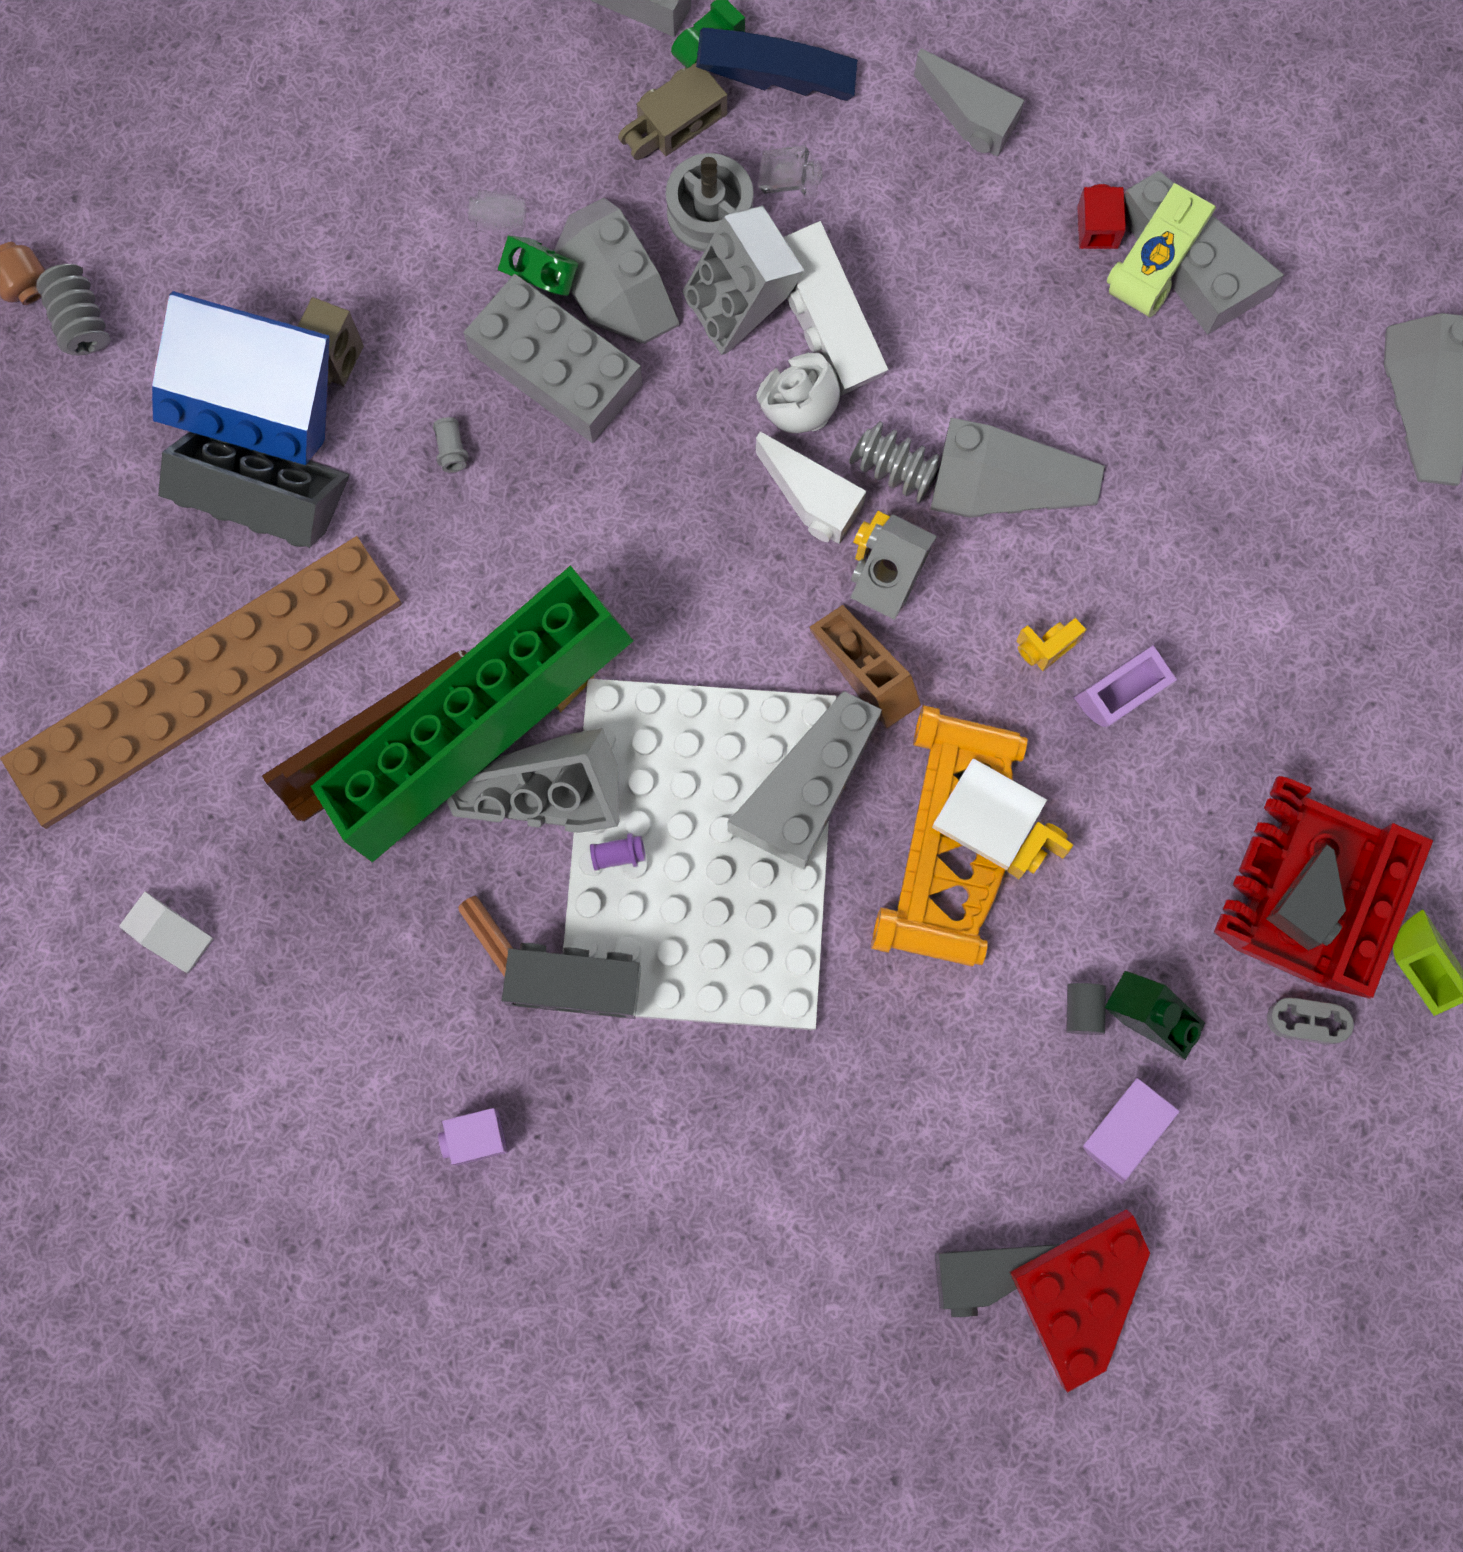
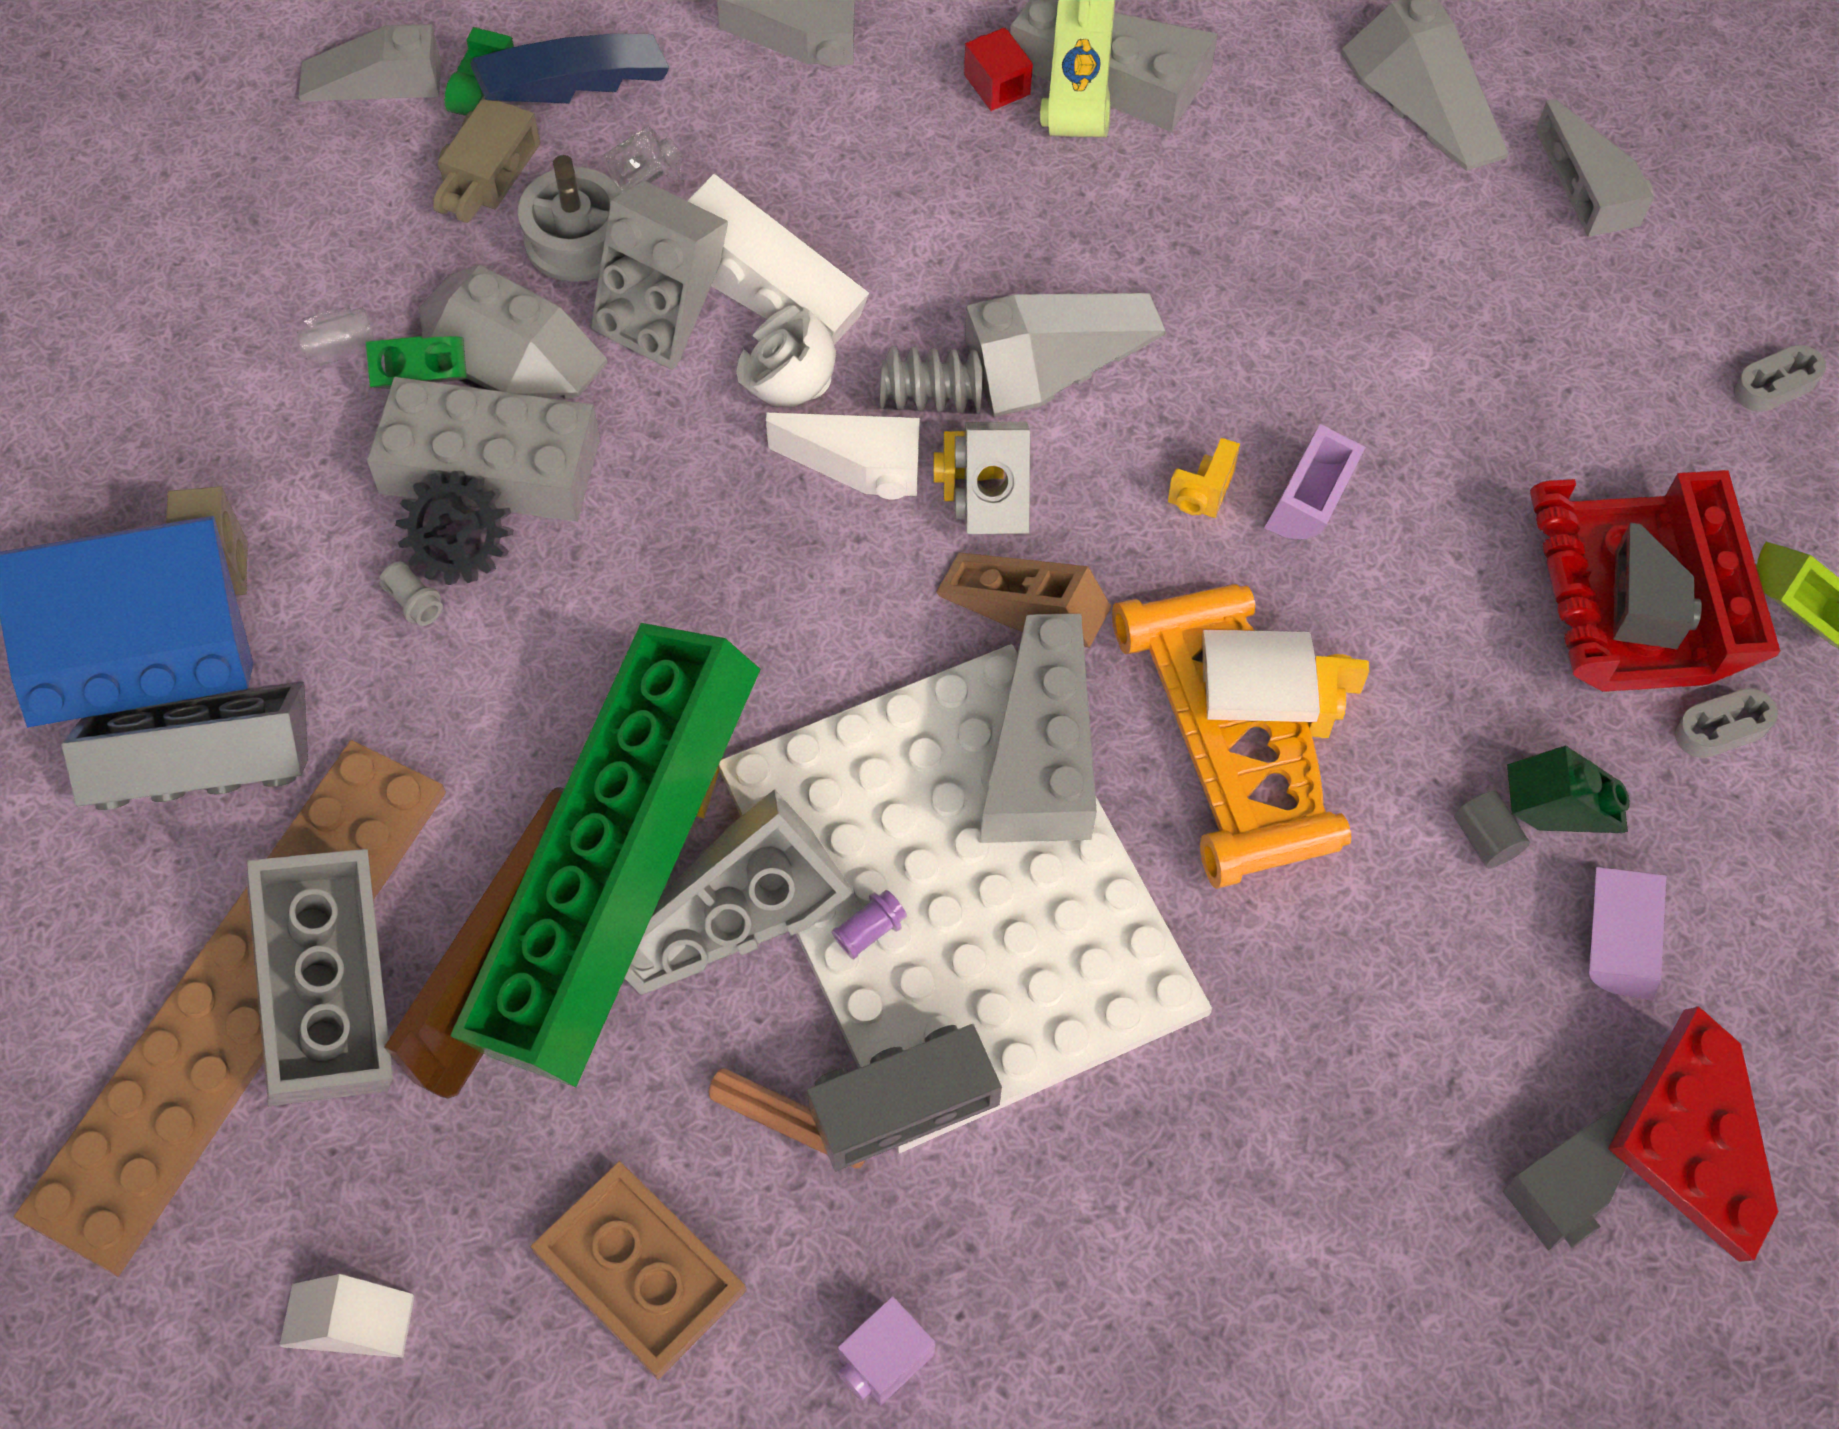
camera: 30 degrees left, 15 degrees down
(246, 702) = (318, 977): none -> light grey brick
(353, 999) = (638, 1269): none -> medium nougat plate
(510, 399) = (459, 546): none -> black gear

